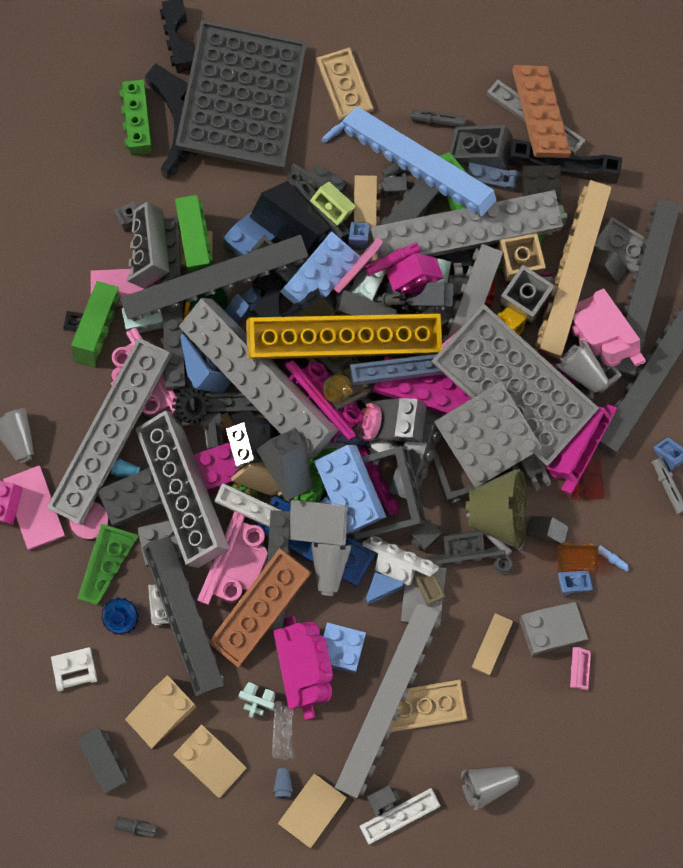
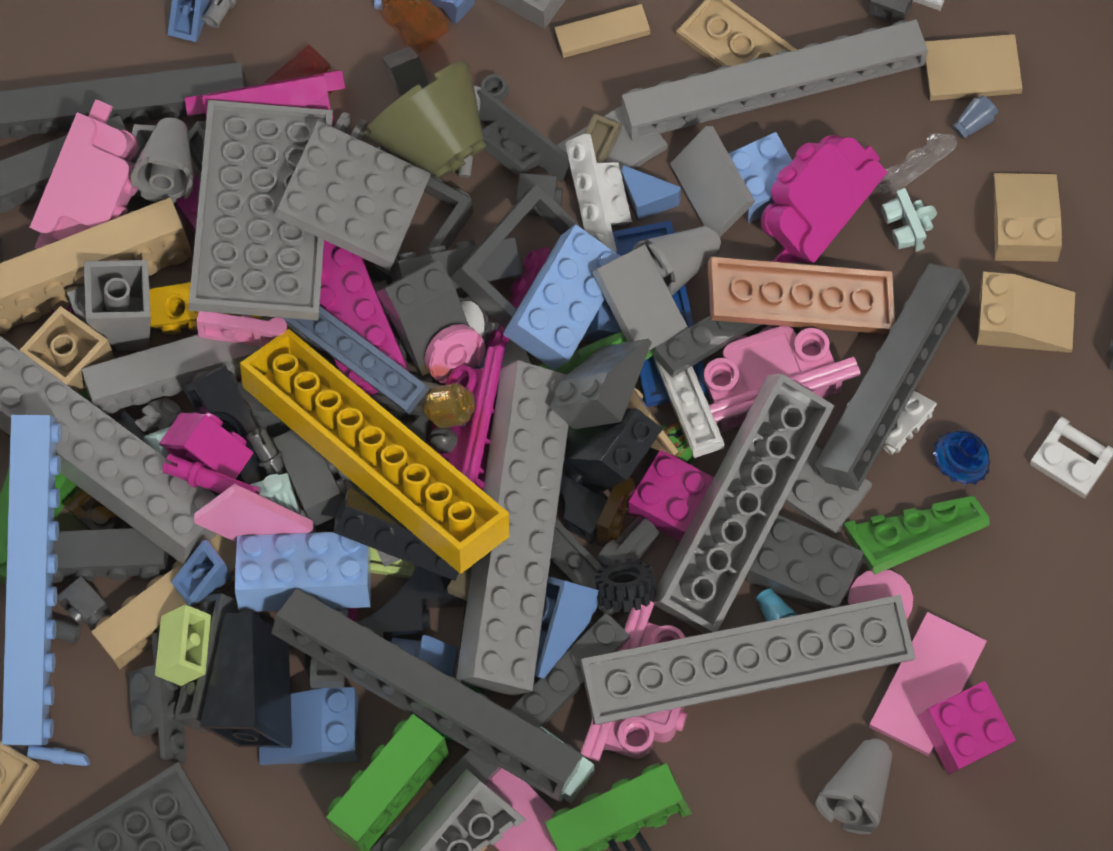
camera: 125 degrees left, 5 degrees down
(357, 620) = (712, 181): none -> light grey tile

